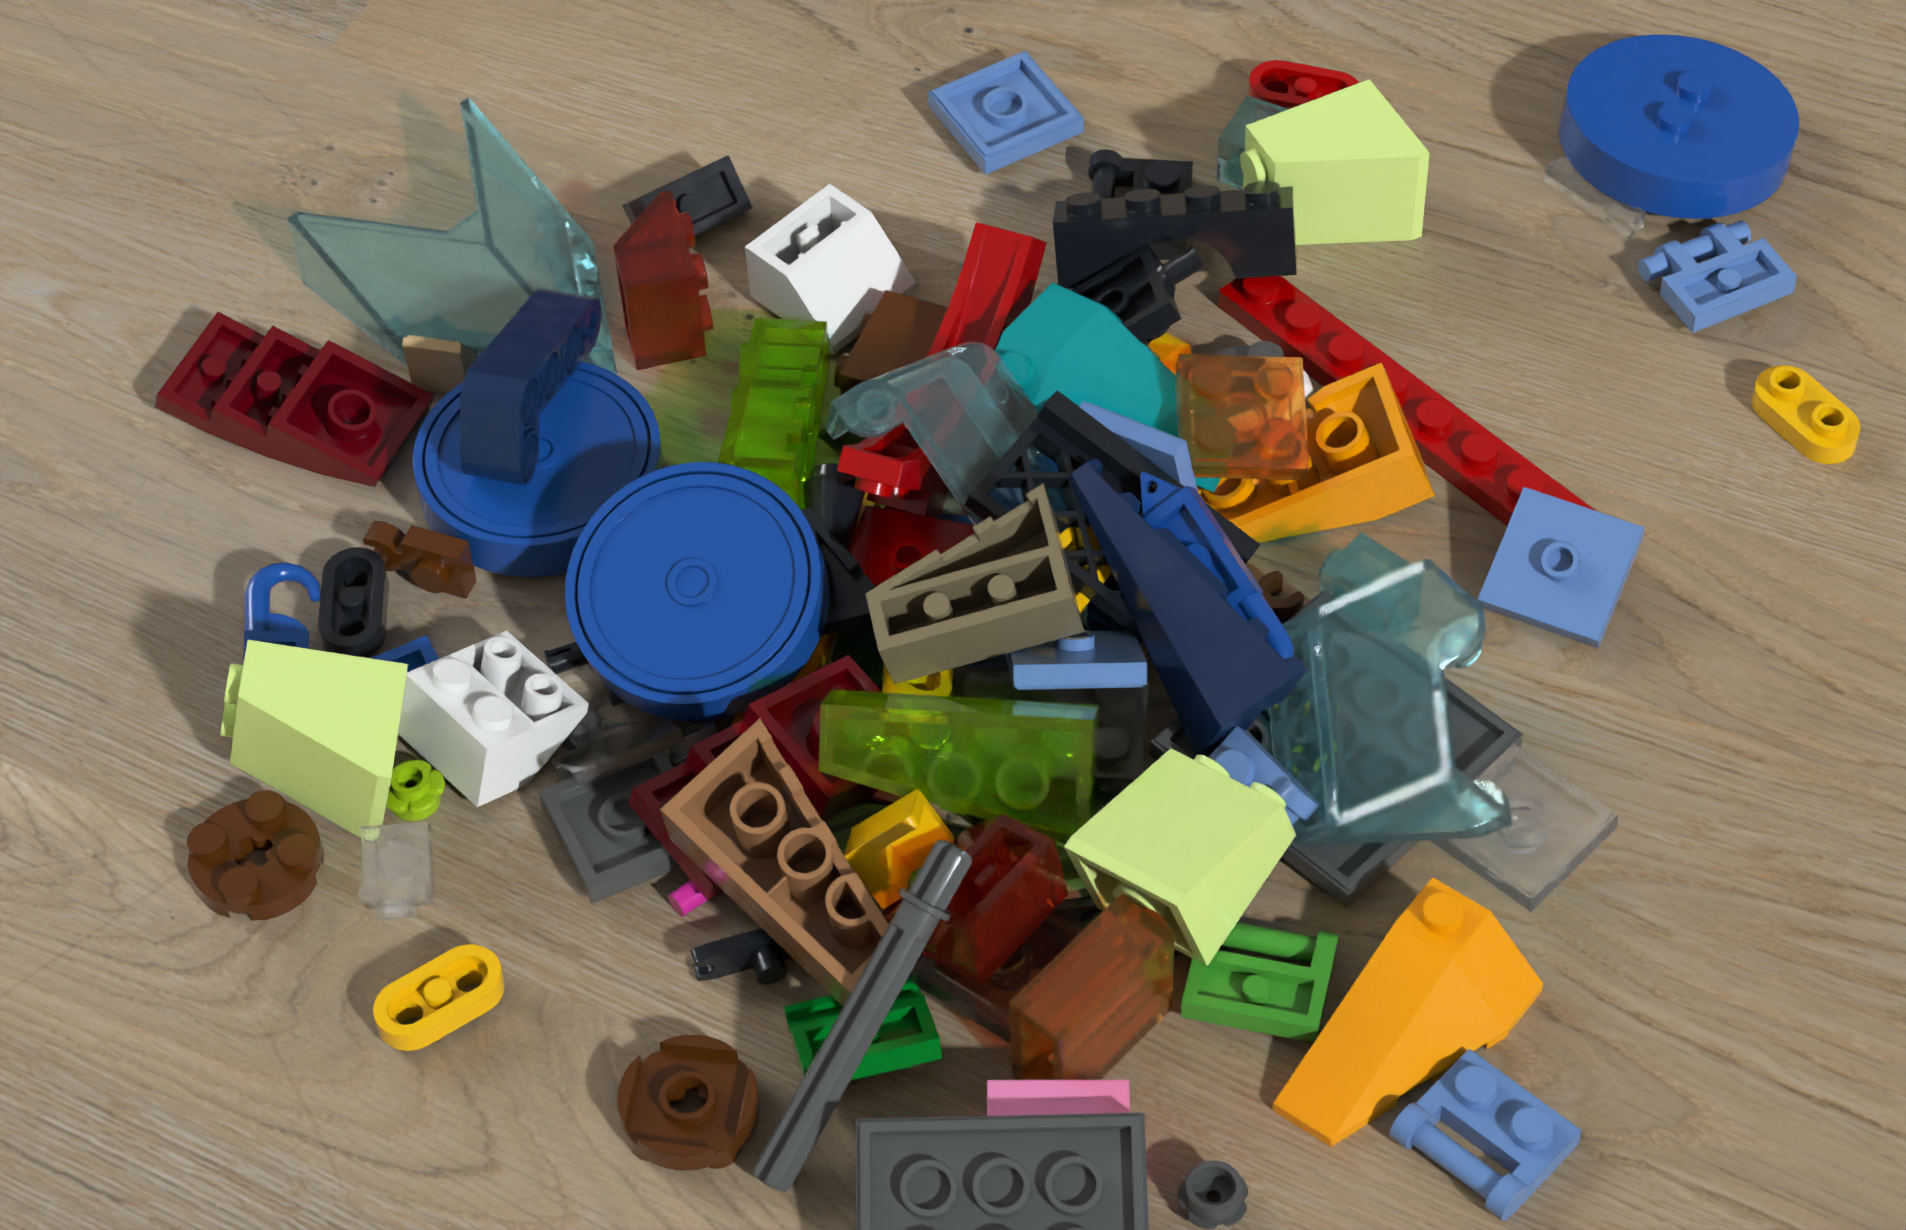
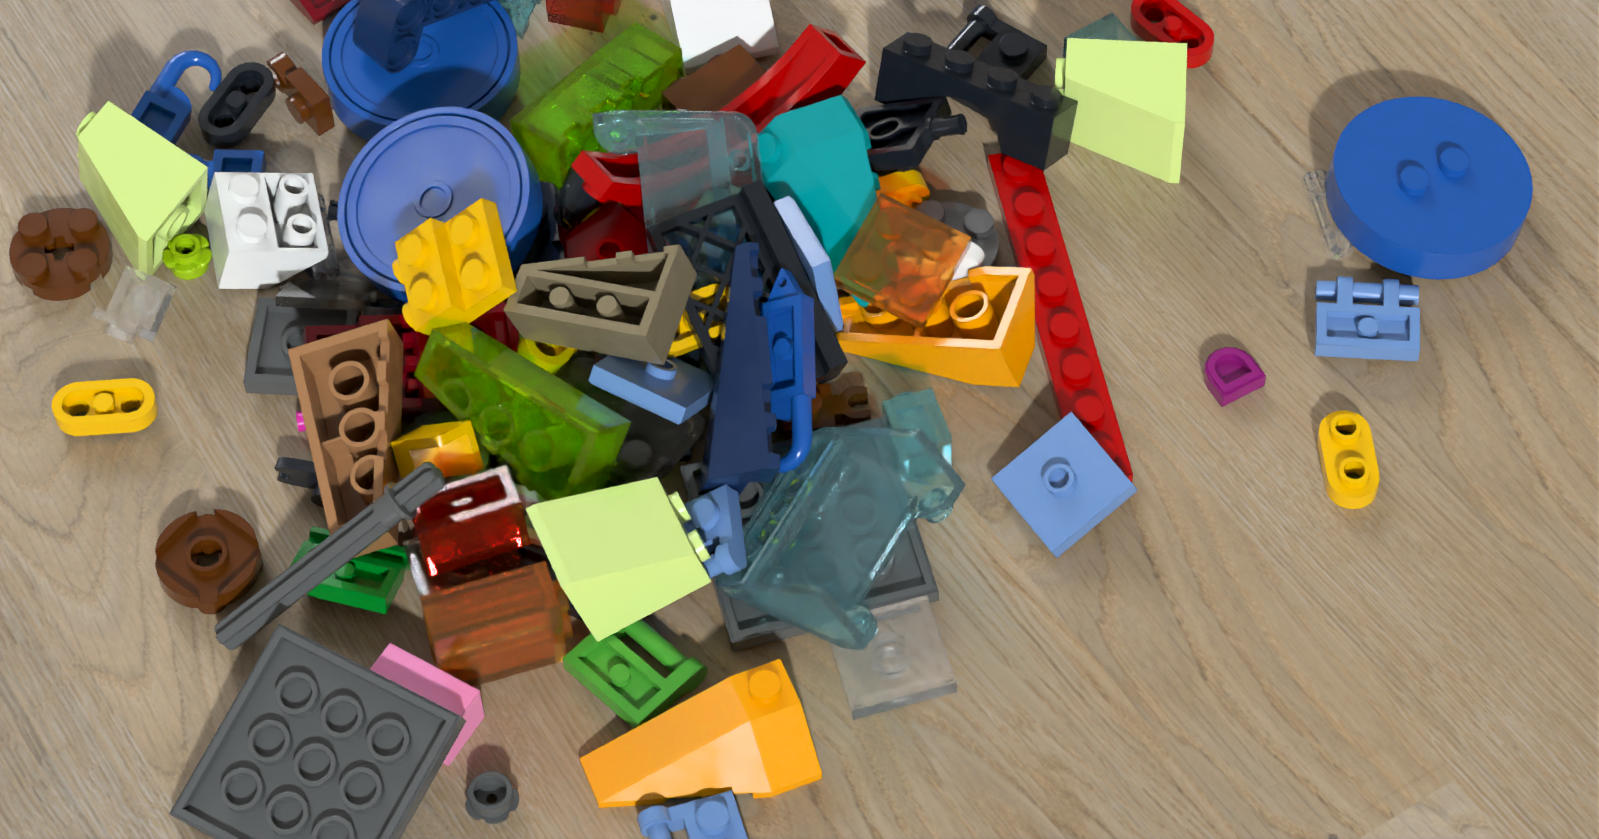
camera: 30 degrees right, 5 degrees up
(786, 637) = (454, 268): none -> yellow plate
(1626, 388) = (1232, 374): none -> magenta tile

